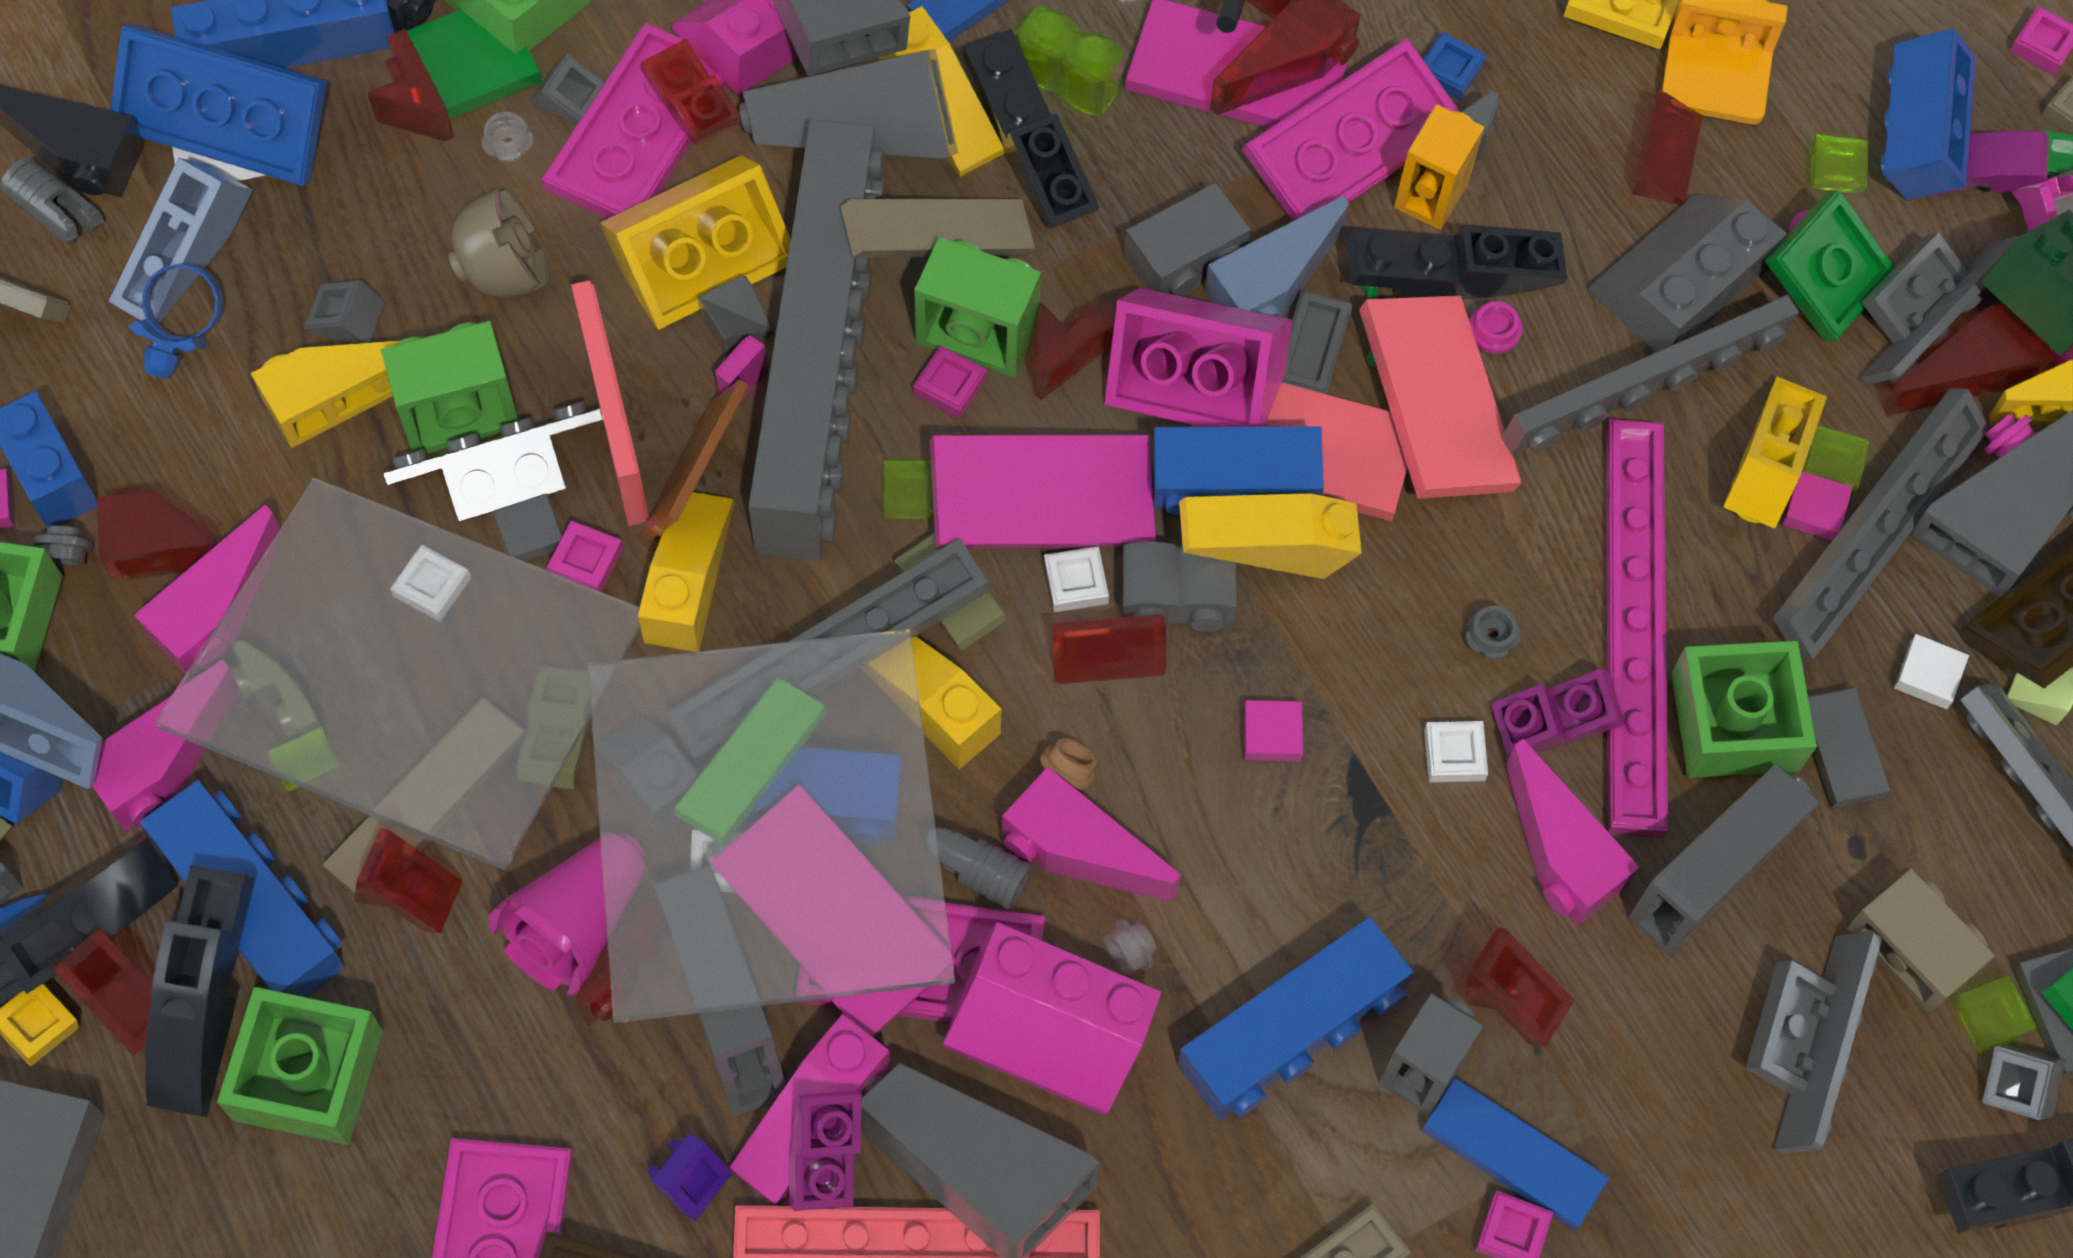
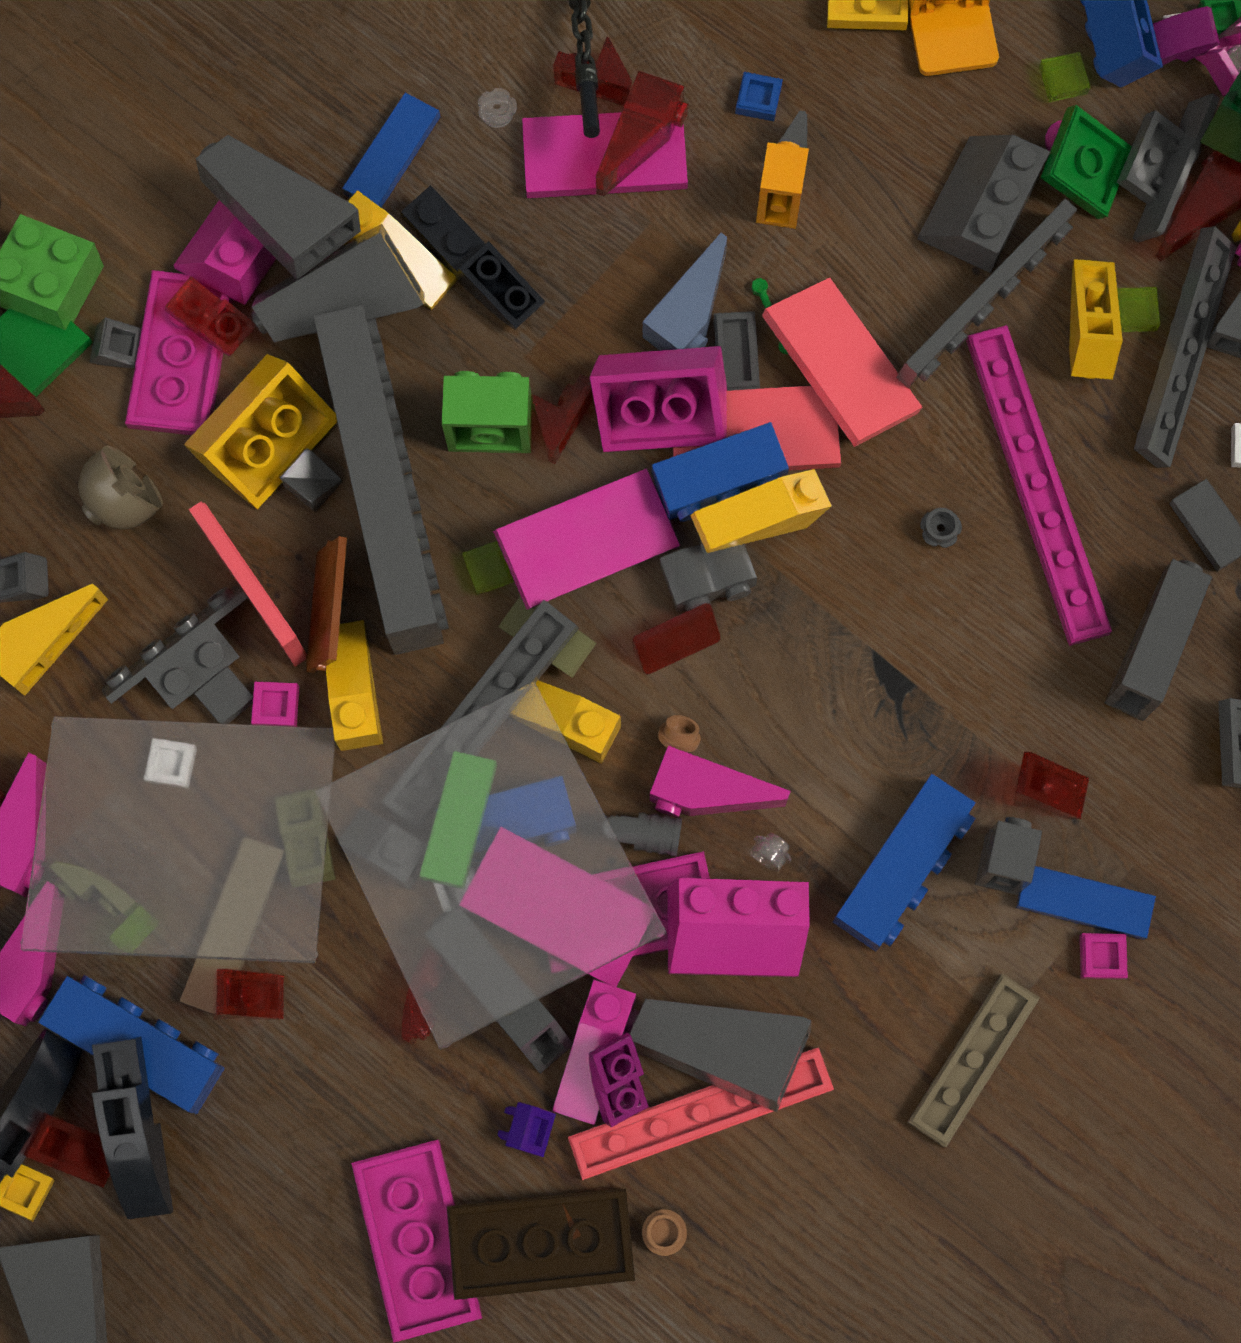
camera: 15 degrees left, 10 degrees up
(300, 1066) = (226, 1154): bright green brick -> none
(449, 386) = (126, 613): bright green brick -> none
(504, 126) = (80, 390): clear plate -> none
(557, 922) = (367, 981): dark pink cone -> none
(744, 363) = (332, 519): dark pink tile -> none
(914, 225) = (425, 368): dark tan tile -> none
(950, 382) = (485, 474): dark pink tile -> none
(1071, 61) = (488, 193): clear neon green brick -> none
(1076, 579) = (632, 592): white tile -> none
(1178, 243) = (618, 307): dark grey brick -> none
(1273, 730) = (812, 656): dark pink tile -> none
(1349, 133) = (708, 178): dark pink tile -> none
(1456, 751) = (945, 624): white tile -> none
(1468, 264) = (819, 255): black slope -> none
(1496, 327) = (863, 293): dark pink plate -> none
(1560, 713) = (1006, 572): magenta slope -> none
(1568, 846) = (1046, 667): dark pink slope -> none
(1667, 150) = (938, 109): clear red slope -> none
(1743, 708) = (1136, 525): bright green brick -> none
(1817, 506) = (1138, 350): dark pink tile -> none

